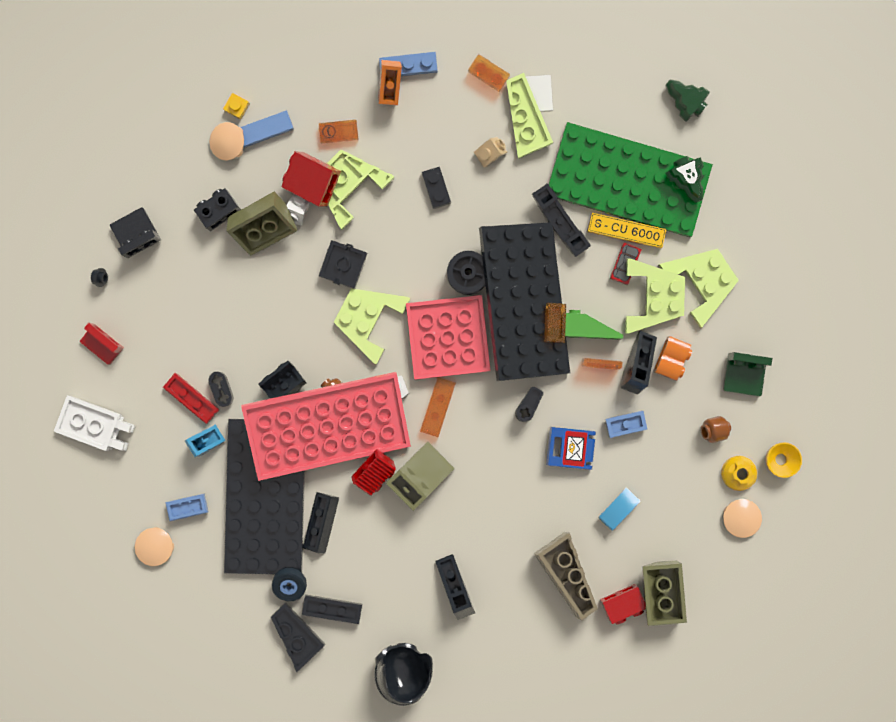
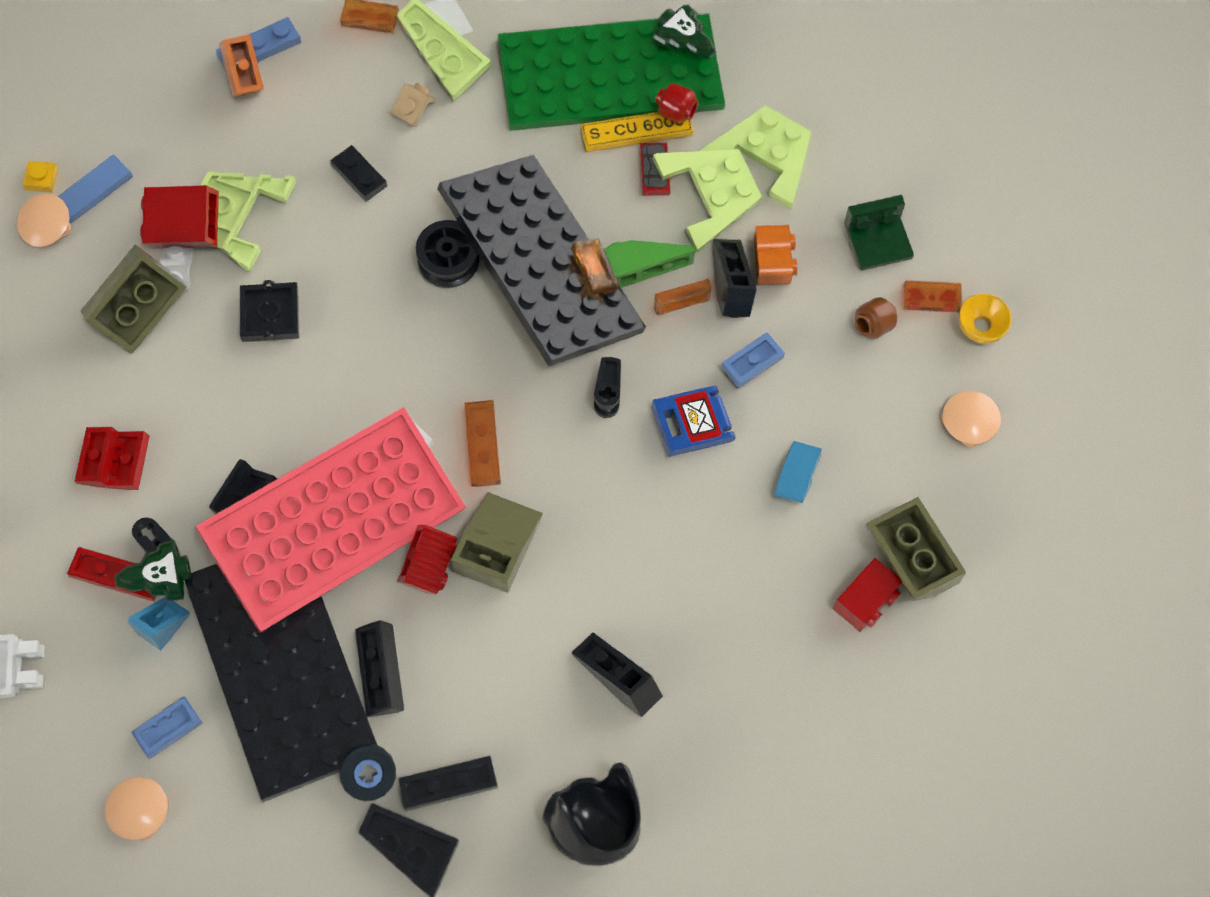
camera: 25 degrees left, 20 degrees down
(214, 322) = (112, 458): none -> red slope
(214, 413) = (158, 573): none -> dark green rock
(216, 209) = (60, 308): black brick -> none
(338, 131) = (195, 155): clear orange tile -> none
(360, 315) = (321, 365): yellowish green wing -> none
(448, 337) = (456, 347): coral plate -> none
(561, 222) = (551, 155): black slope -> none
(564, 569) = (769, 586): dark tan wedge -> none
(659, 227) = (677, 103): none -> red head
(730, 469) = (934, 374): yellow piece -> none
(759, 427) = (932, 296): none -> clear orange tile

